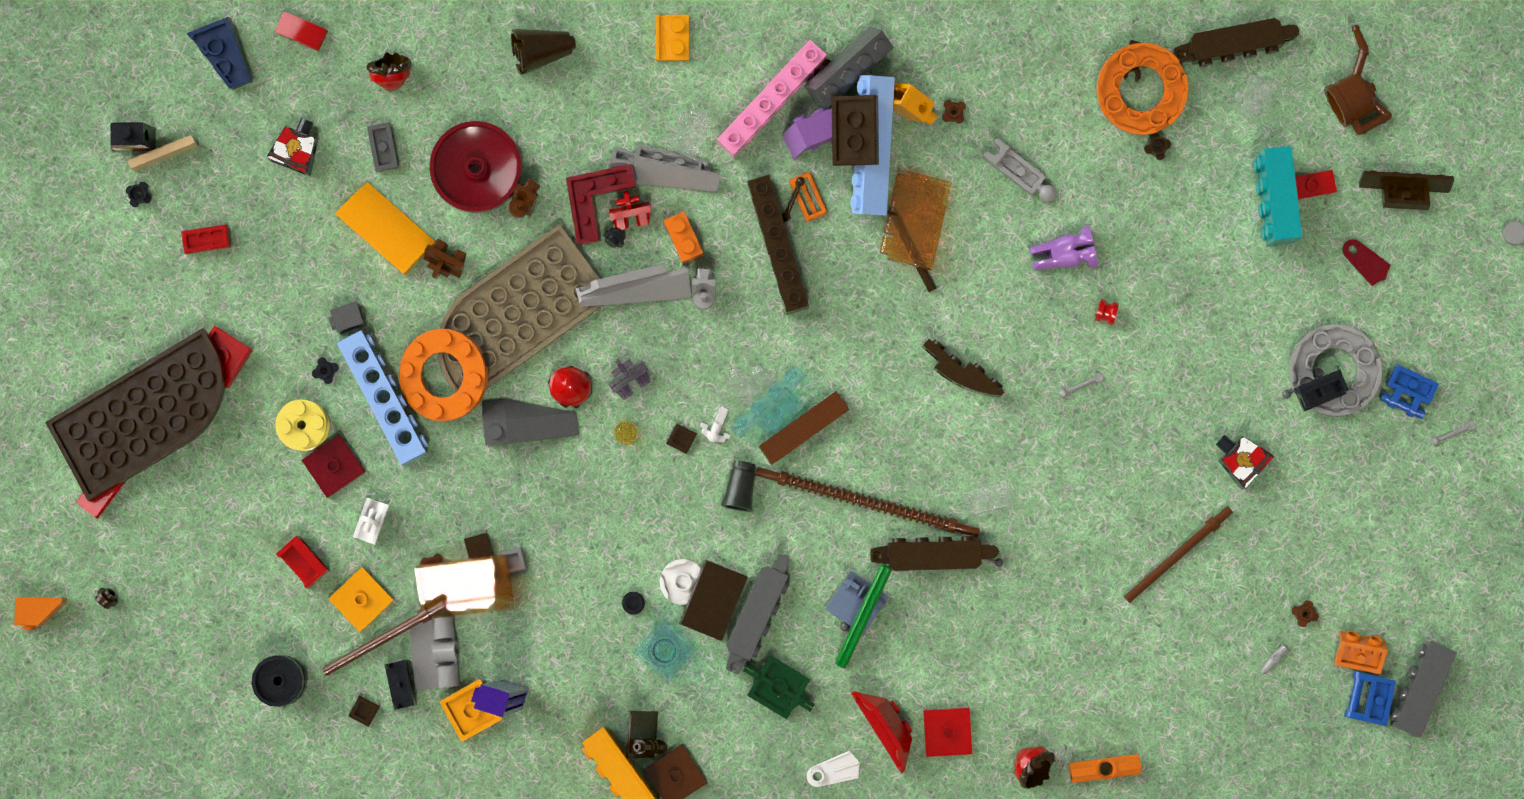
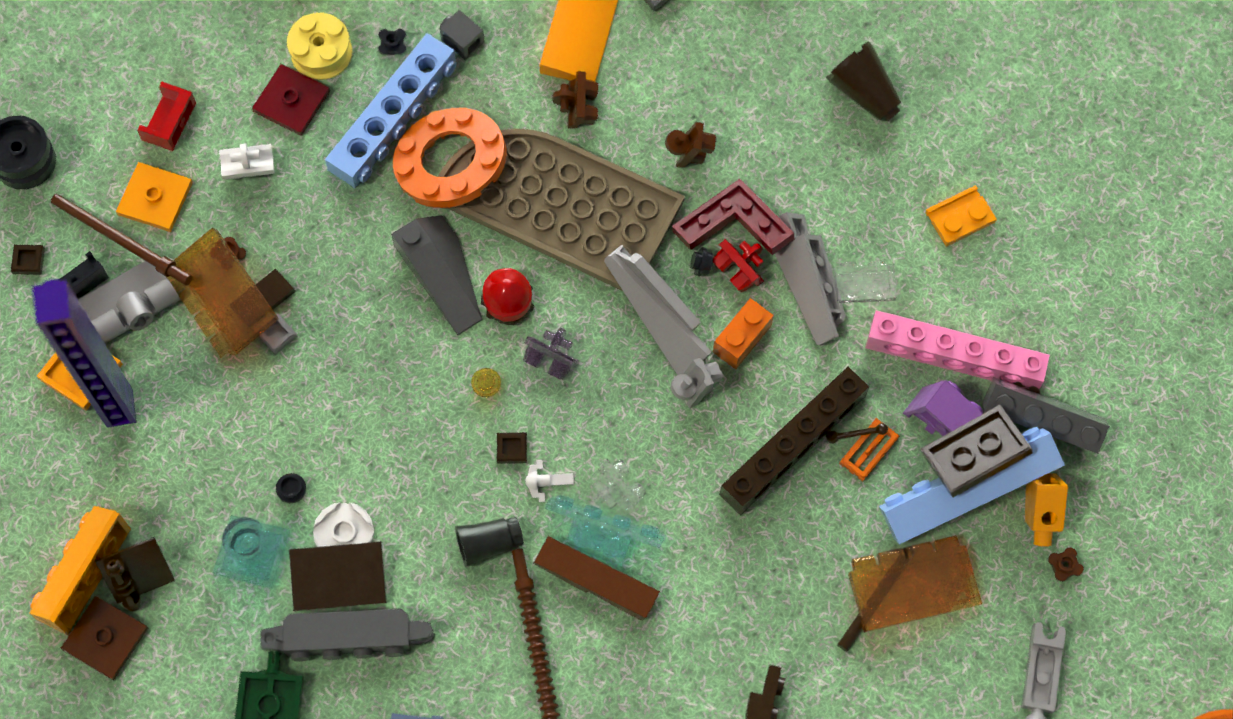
camera: 65 degrees right, 15 degrees down
(475, 167) = (698, 78): dark red dish -> none

